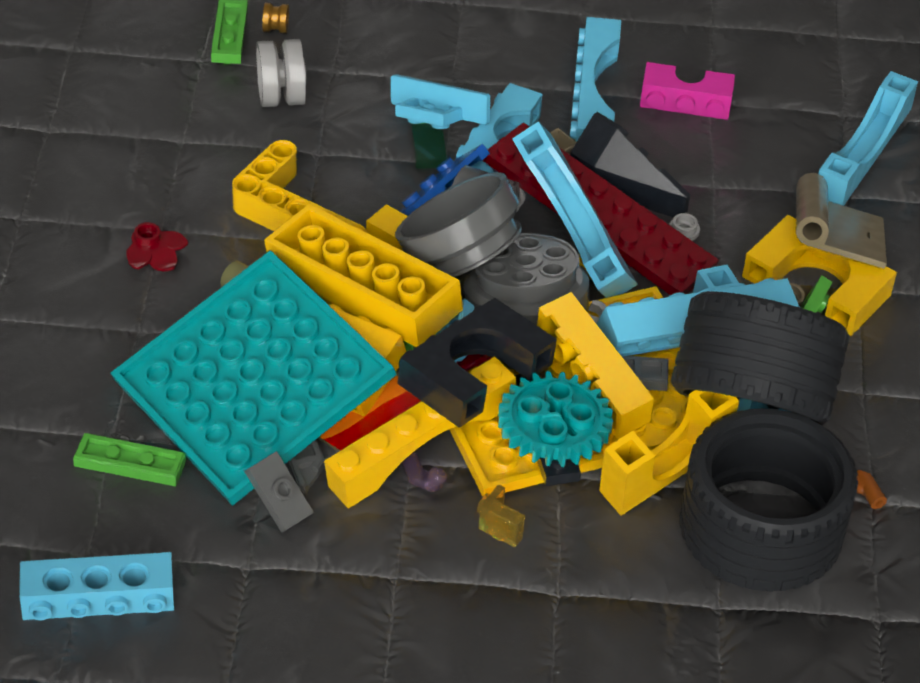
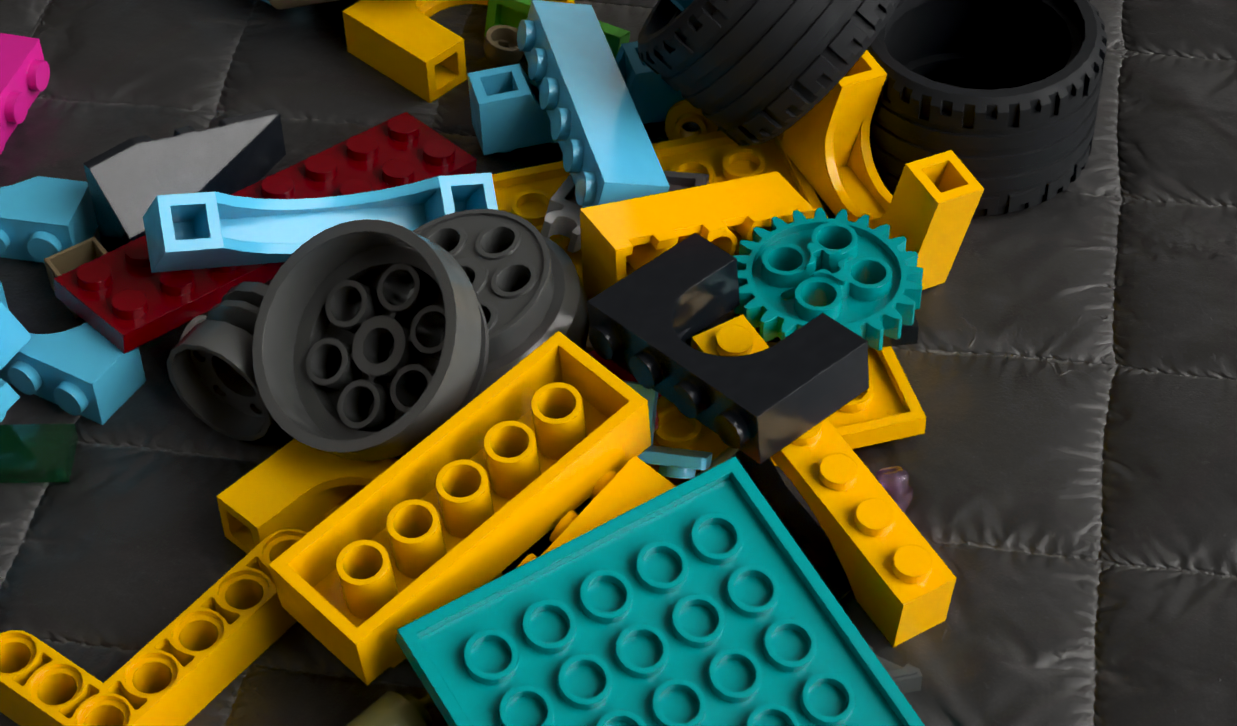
camera: 80 degrees left, 0 degrees up
(279, 491) = (952, 691): dark grey plate -> none
(436, 184) = (155, 424): blue wing -> none
(500, 520) = (982, 413): clear yellow bracket -> none
(686, 224) = (316, 137): light grey plate -> none

